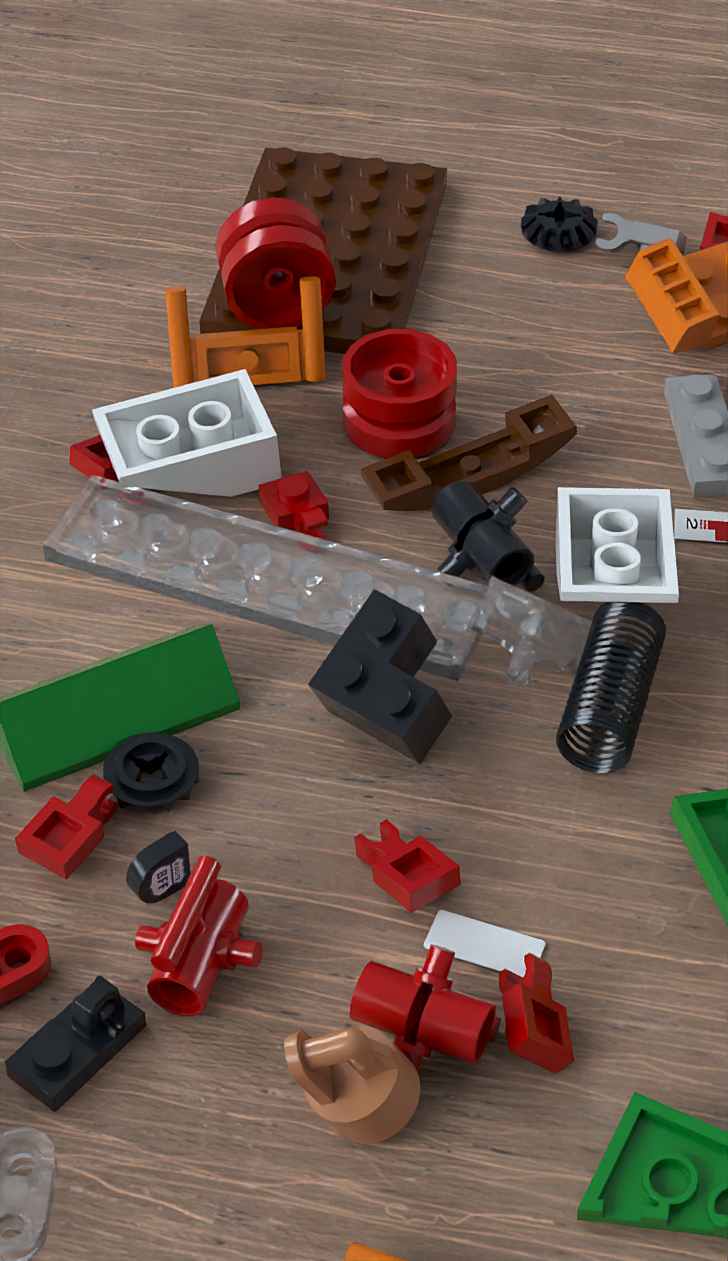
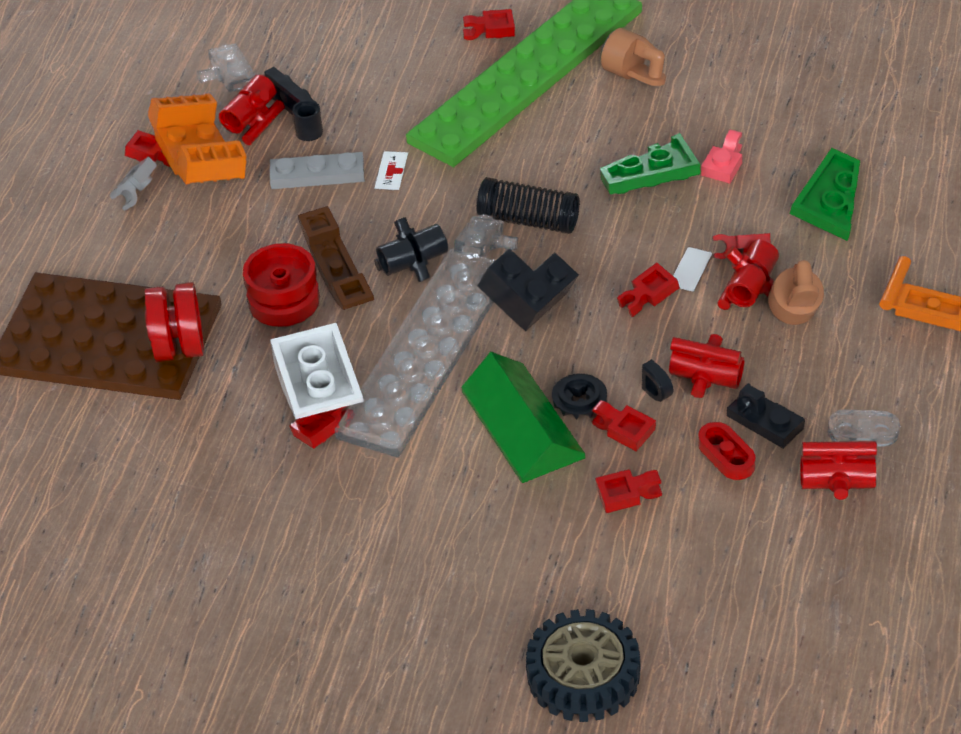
camera: 85 degrees left, 0 degrees up
(266, 354) = (225, 350): orange plate -> none
(296, 504) = (364, 343): red plate -> none
(541, 230) = (111, 230): black gear -> none
(615, 545) = (441, 190): white slope -> none

